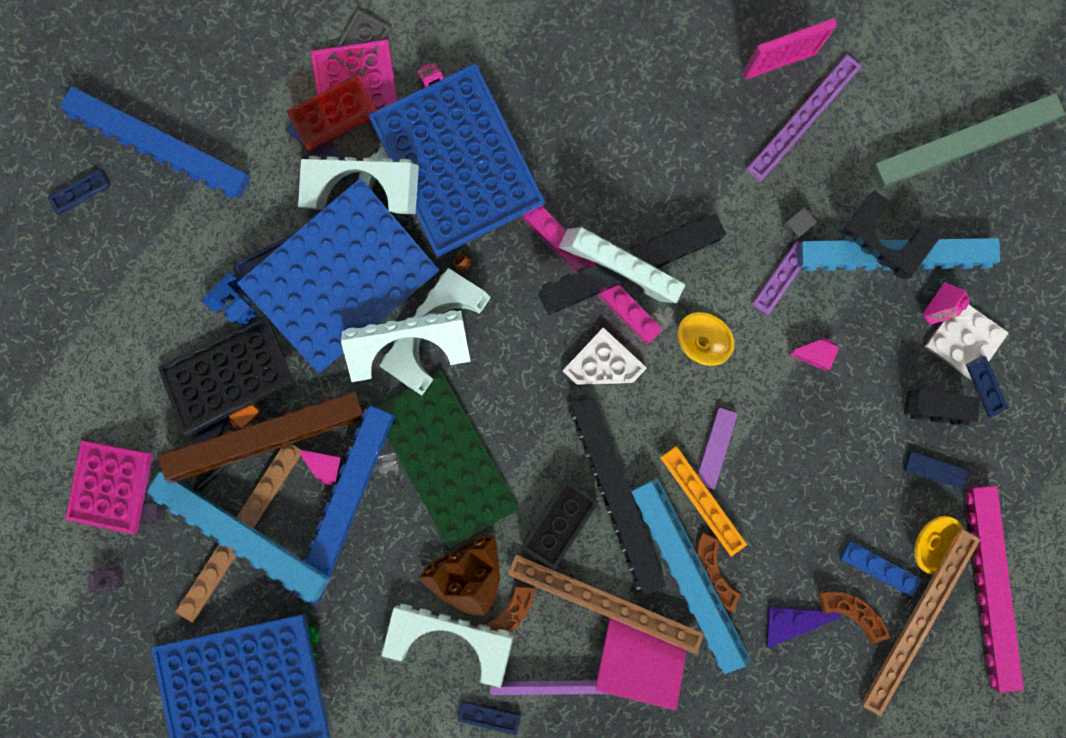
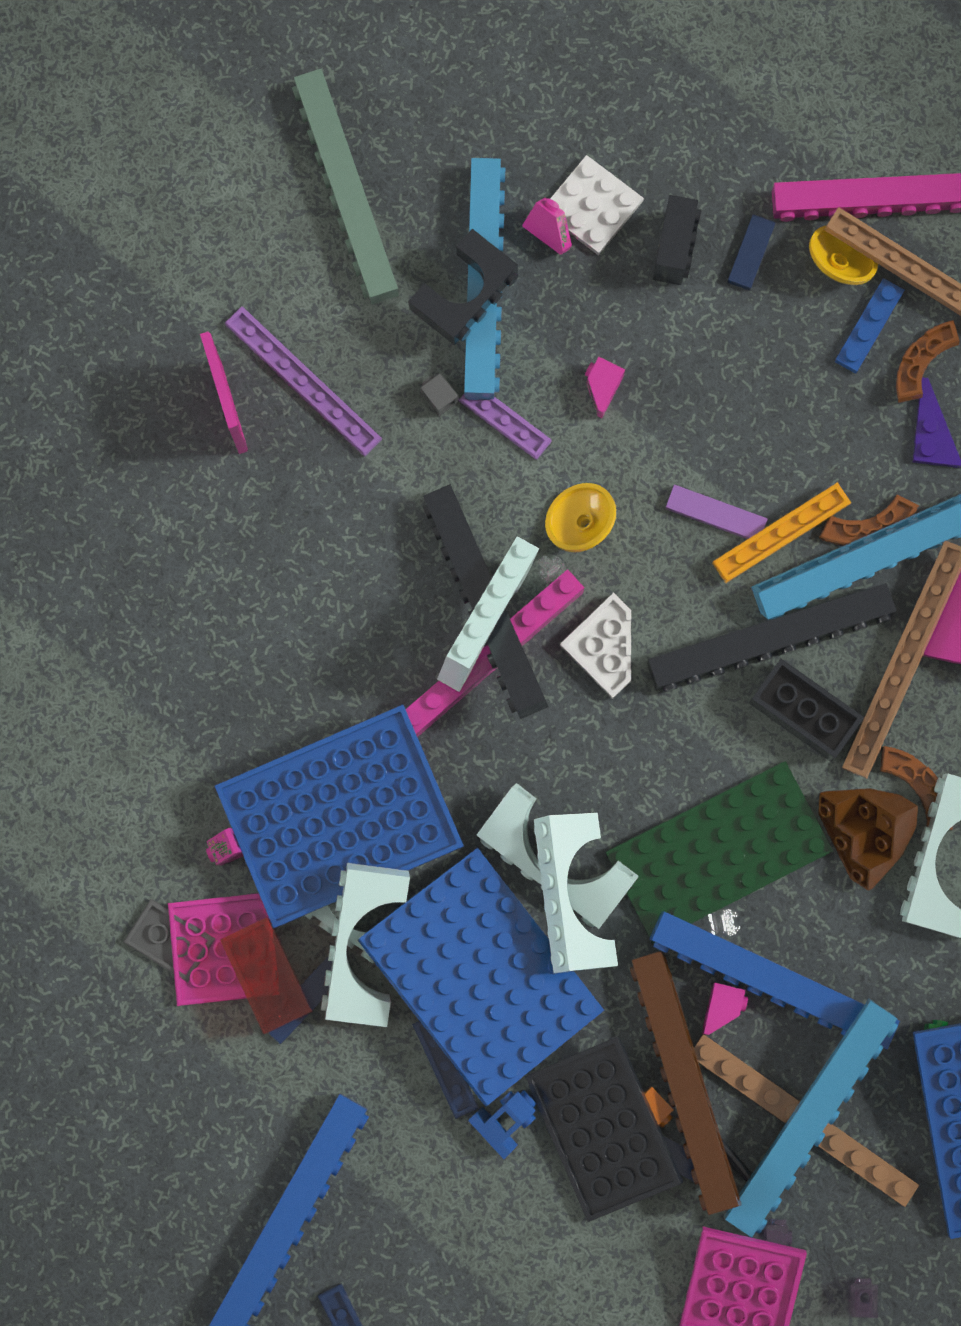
camera: 80 degrees left, 5 degrees down
(462, 262) = (468, 818): dark orange plate -> none
(986, 386) = (651, 185): dark blue tile -> none

